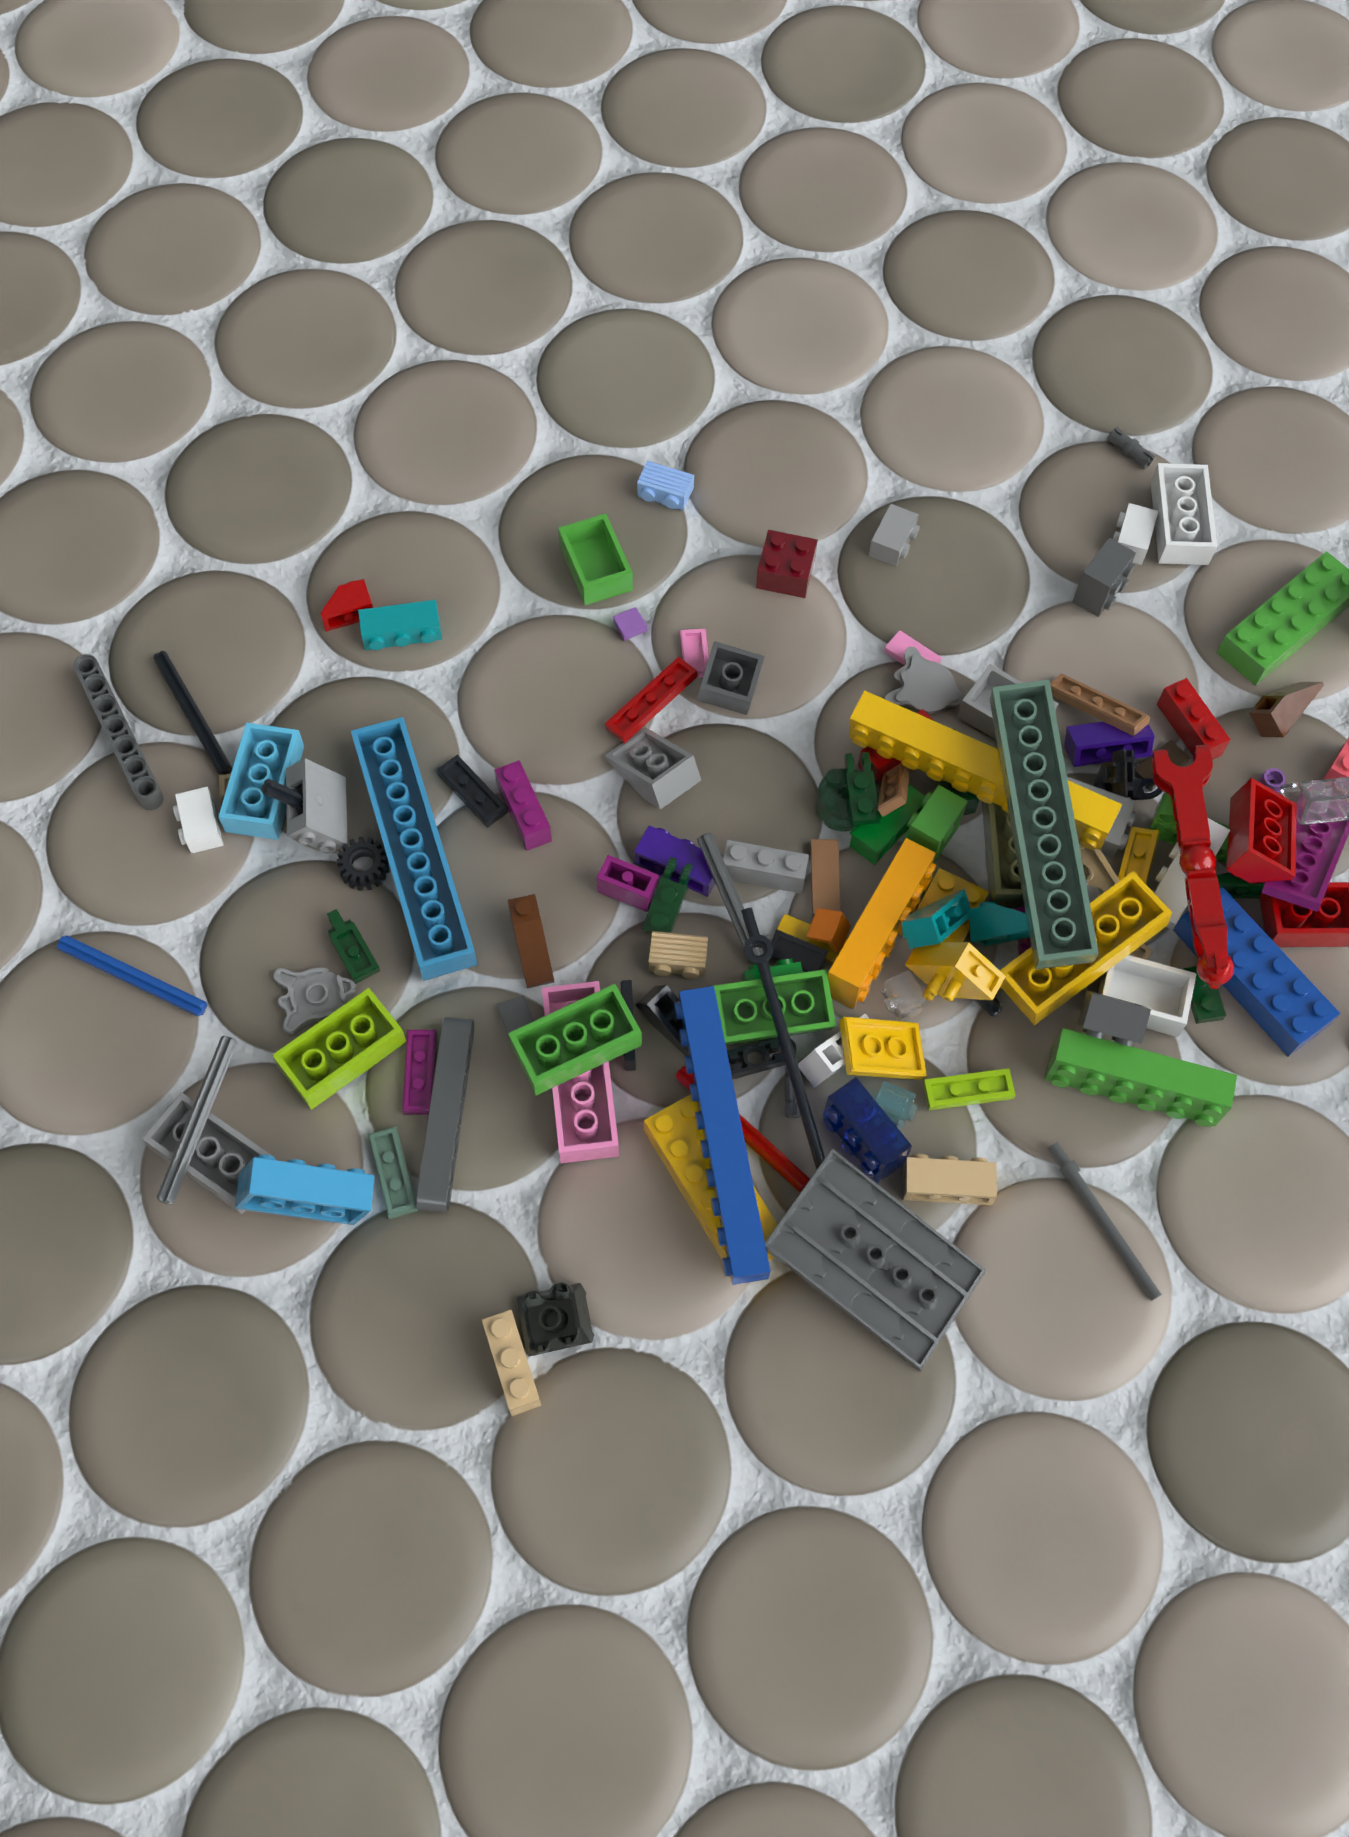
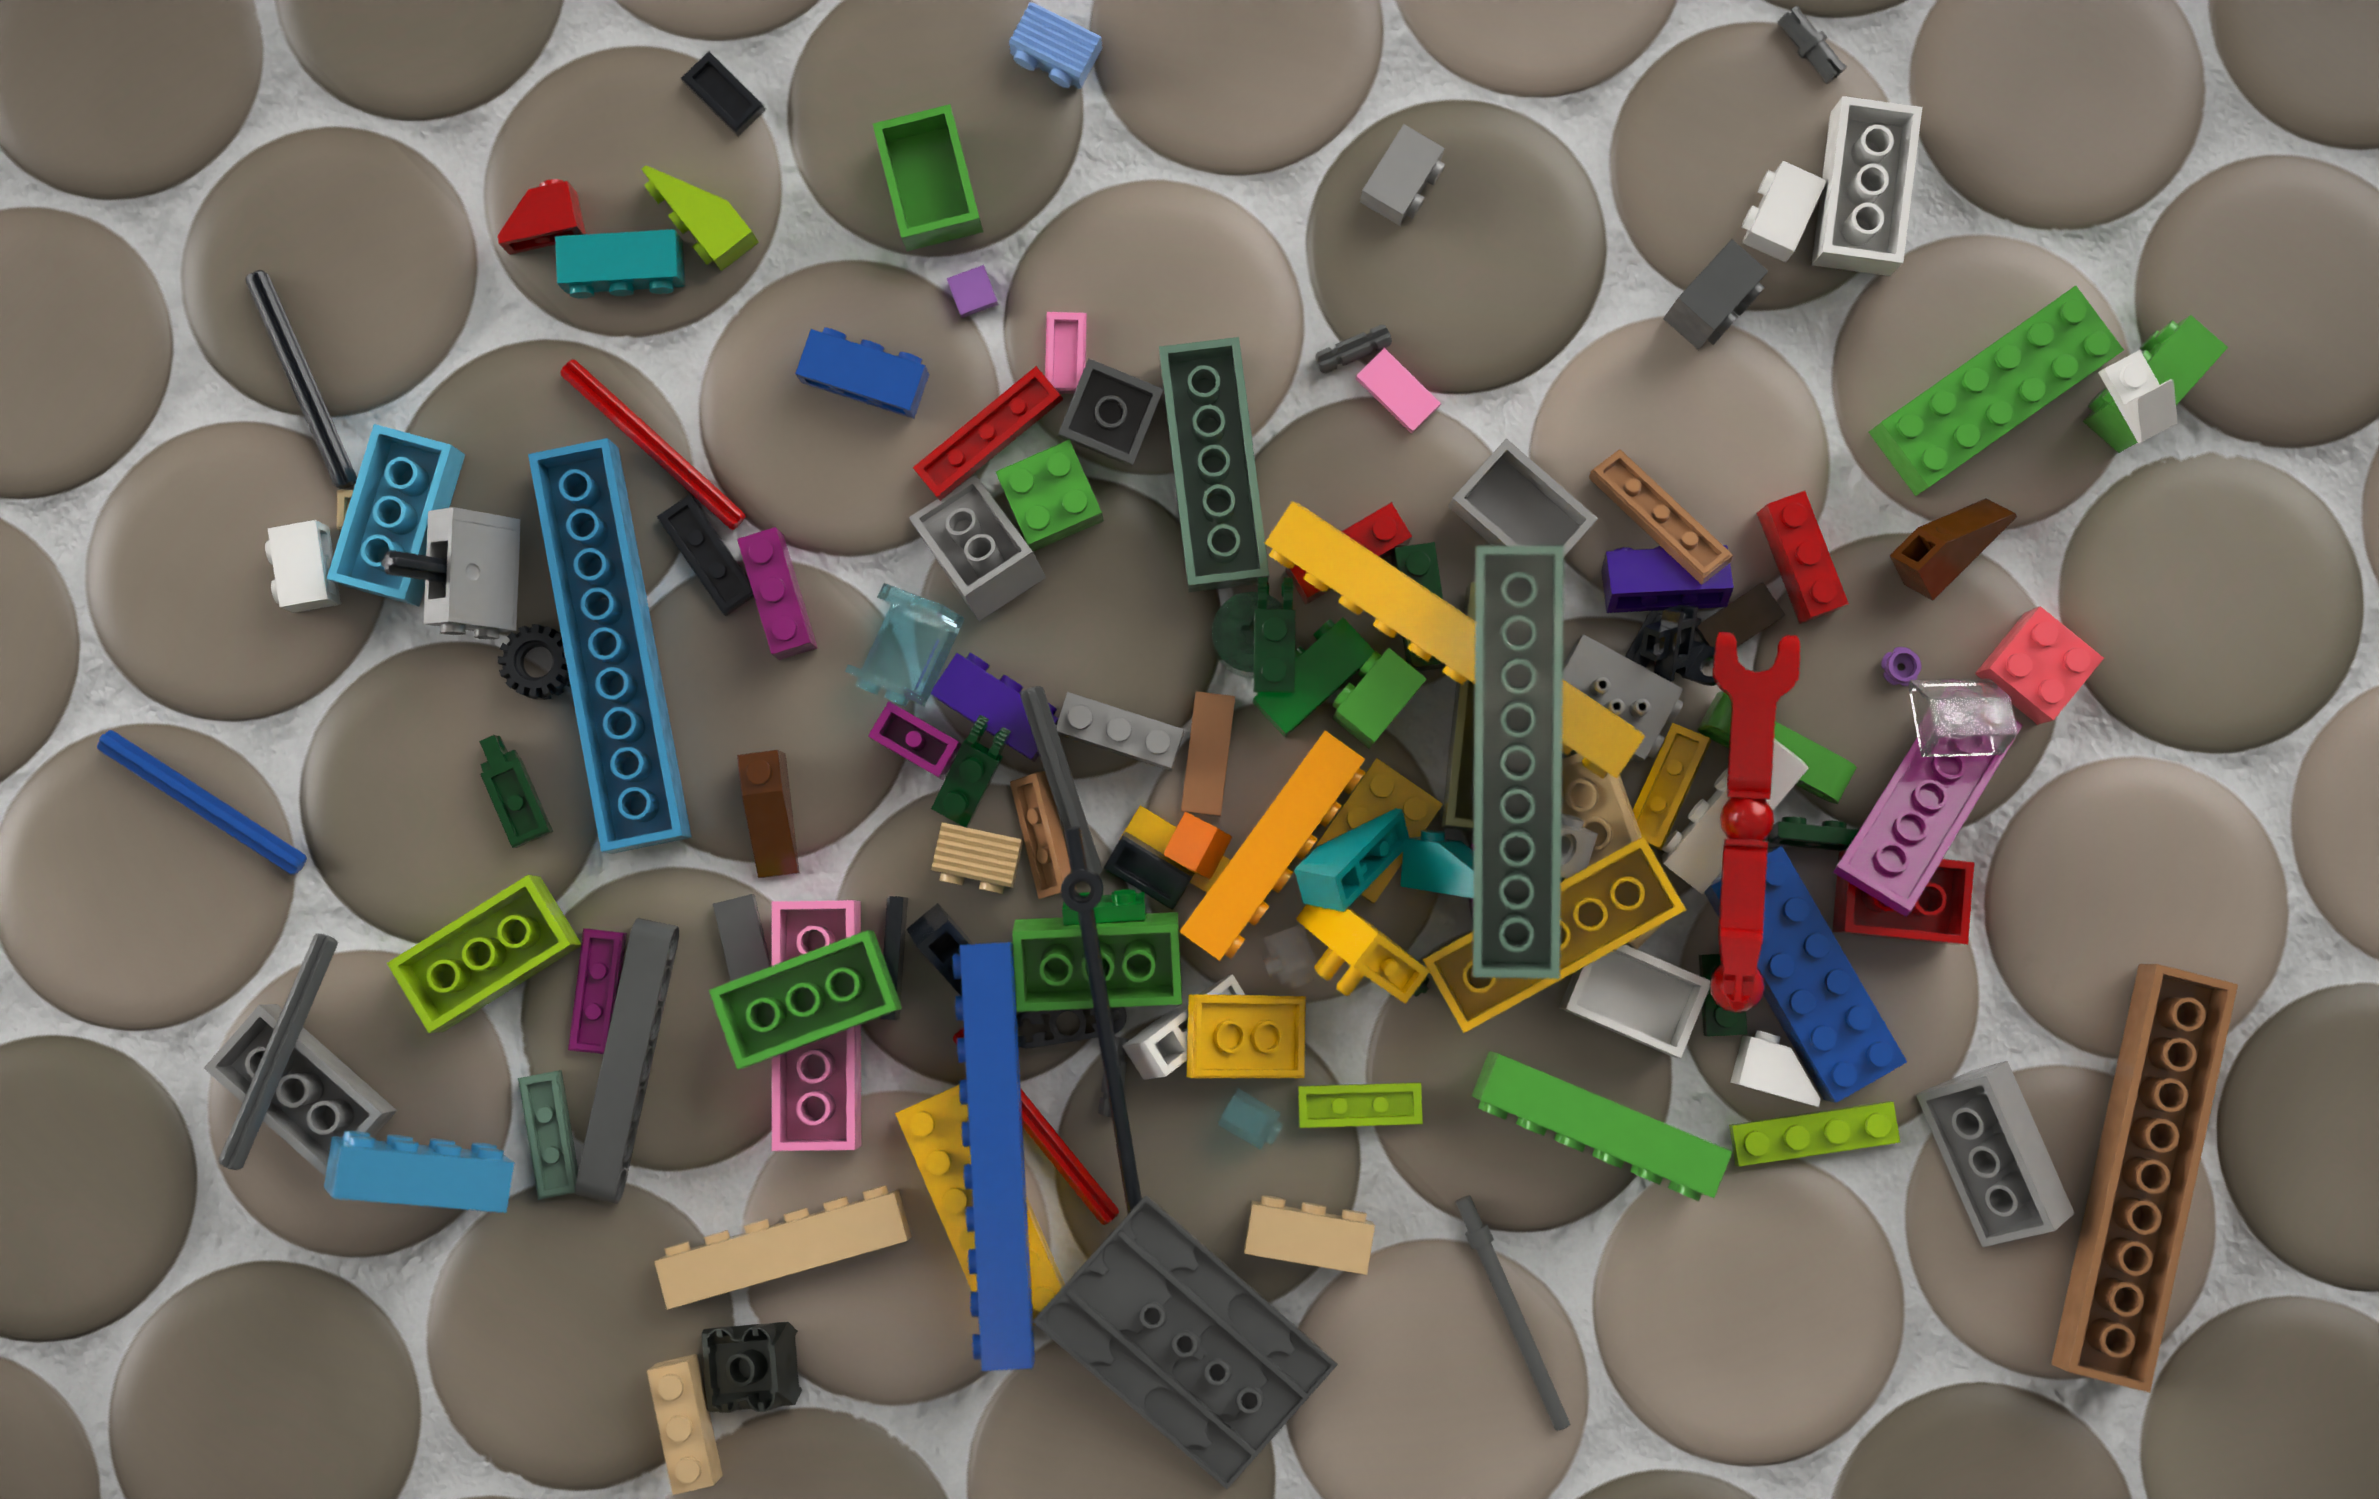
camera: 10 degrees right, 20 degrees up
(124, 739) = (175, 392): dark grey beam -> none
(311, 996) = (454, 860): light grey tile -> none
(430, 728) = (652, 444): none -> red axle
(454, 595) = (709, 218): none -> lime slope
(457, 530) = (723, 93): none -> black tile
(565, 673) = (863, 372): none -> blue brick
(571, 1229) = (782, 1248): none -> tan brick
(616, 825) = (908, 647): none -> clear light blue panel
(698, 729) = (1050, 495): none -> bright green brick
(721, 936) = (1041, 833): none -> medium nougat plate
(786, 563) = (1225, 212): dark red brick -> none
(802, 702) = (1213, 464): none -> sand green brick
(866, 1130) = (1201, 1162): clear blue brick -> none
(879, 633) = (1353, 349): none -> dark grey axle
(893, 789) = (1321, 642): medium nougat tile -> none
(924, 685) = (1405, 450): light grey tile -> none
(1113, 1017) = (1574, 1048): dark grey brick -> none
(1250, 1036) = (1772, 1069): none -> white slope
(1261, 834) = (1855, 779): red slope -> none
(1289, 1077) = (1814, 1133): none -> lime plate

